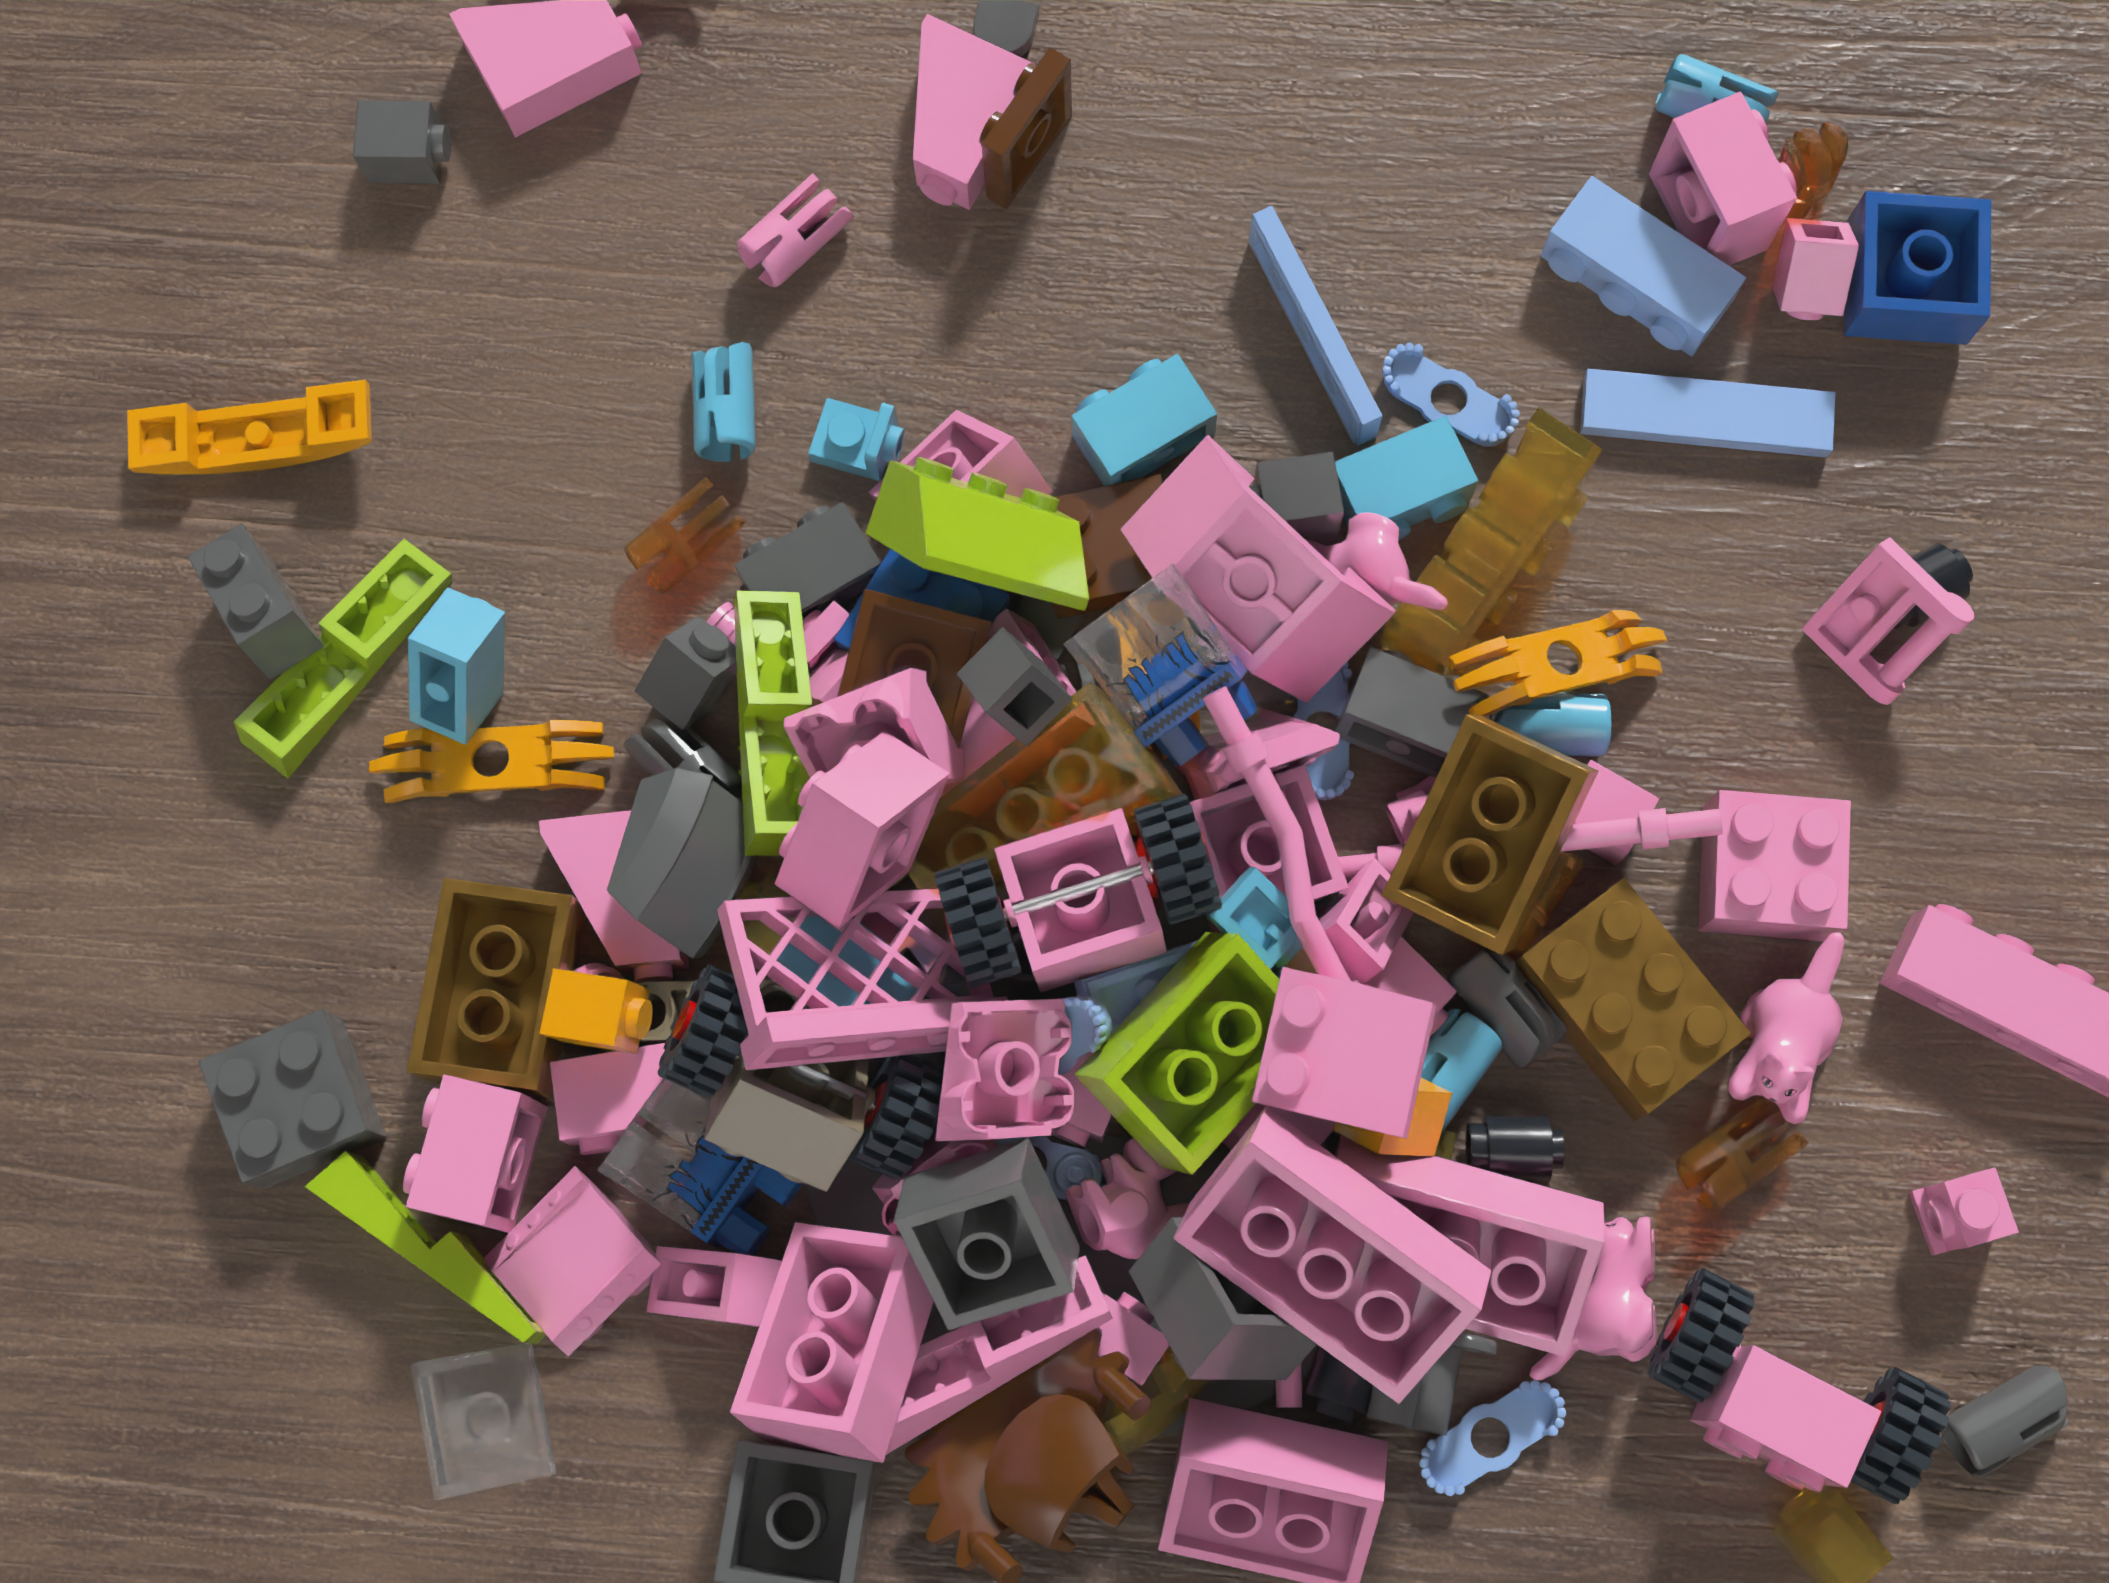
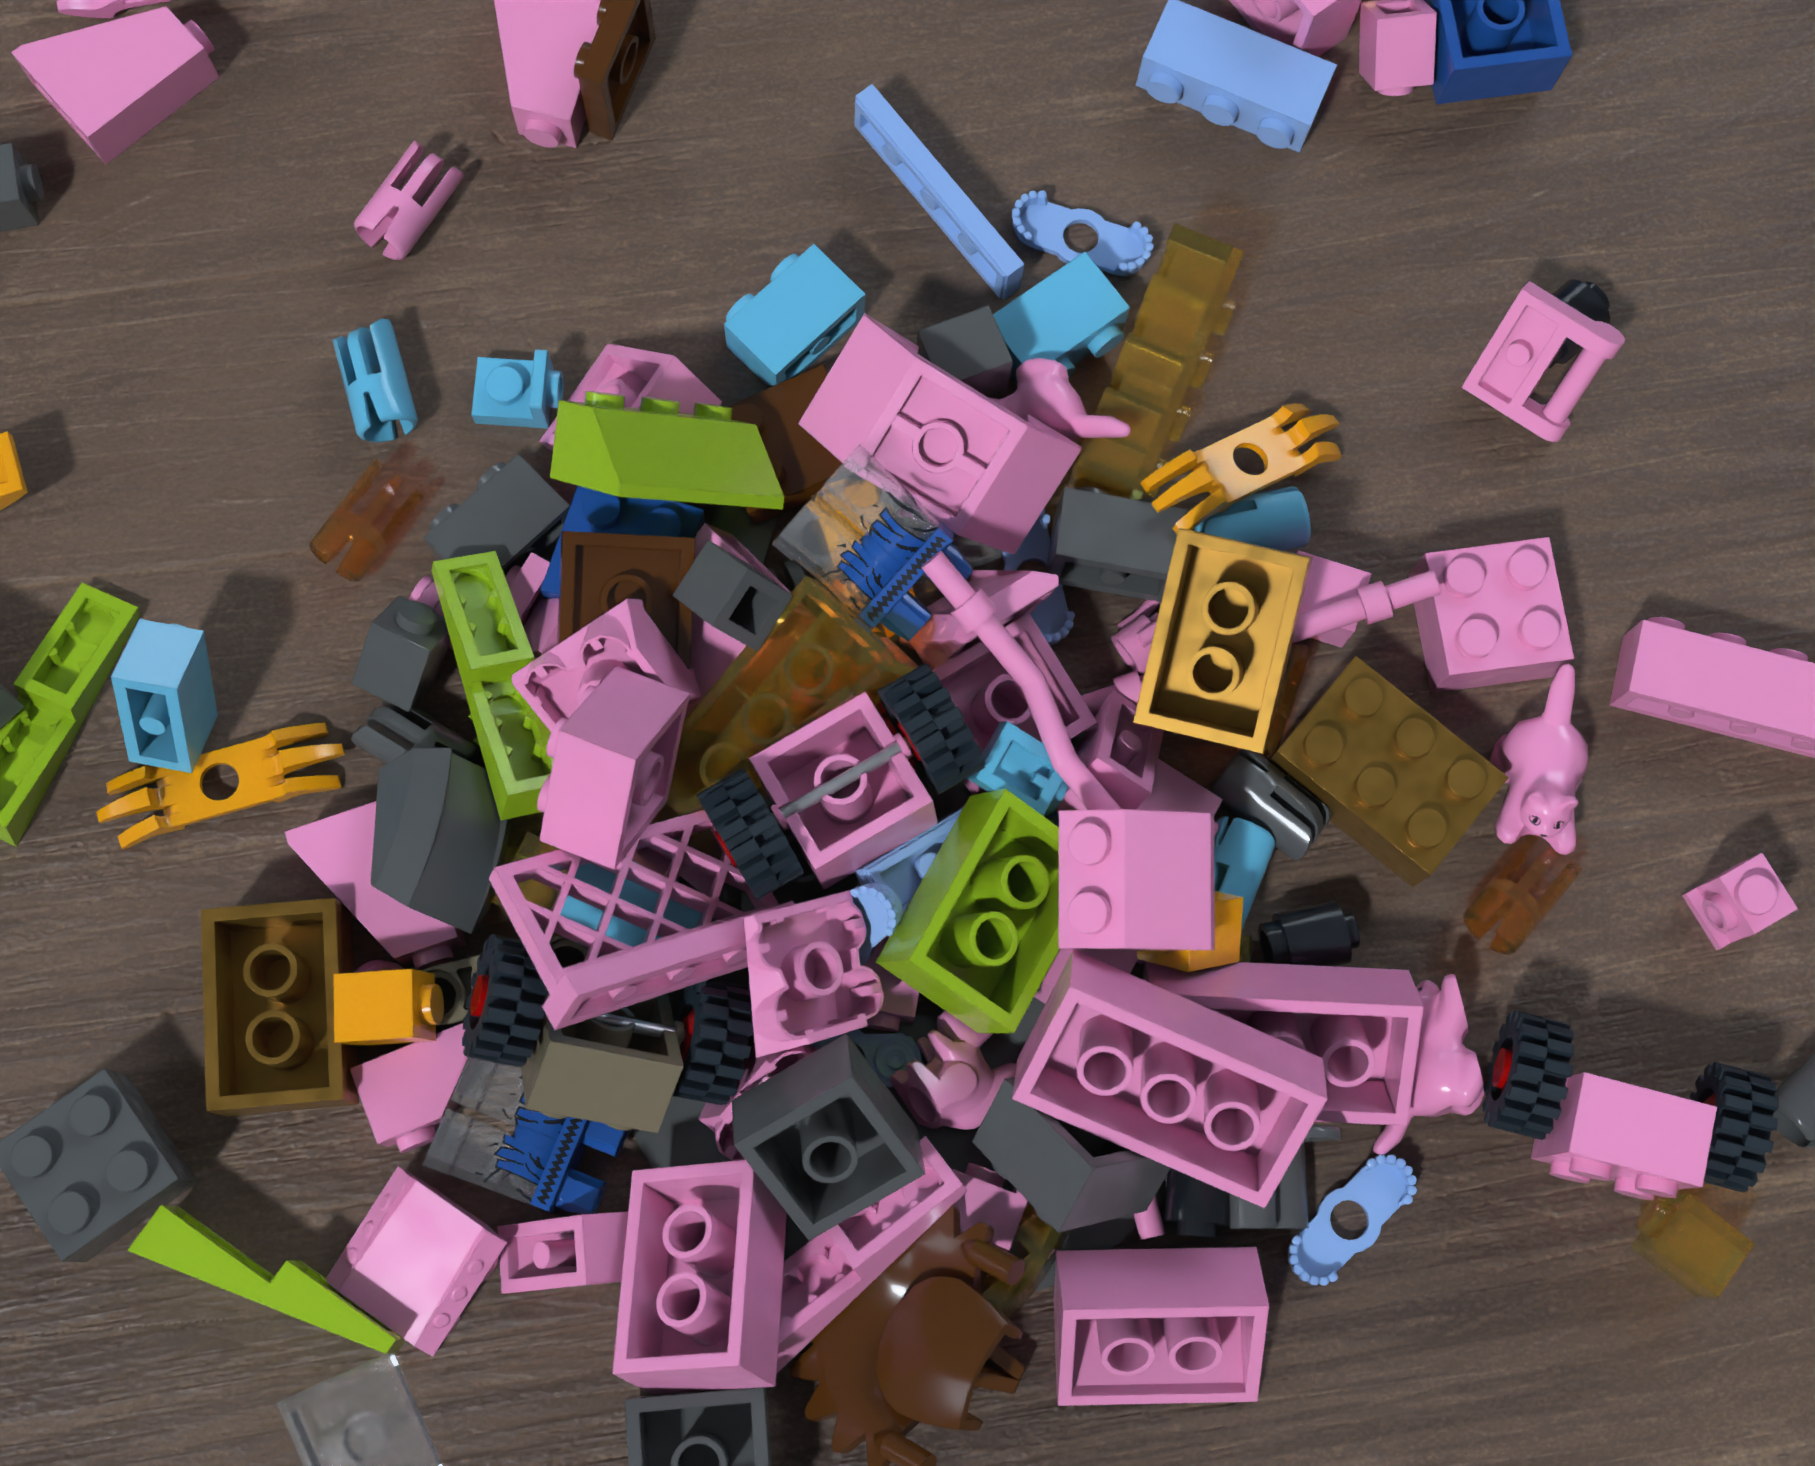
camera: 25 degrees left, 0 degrees up
(474, 1153) = (293, 1177): bright pink brick -> none
(1708, 413) = (1327, 201): light blue tile -> none

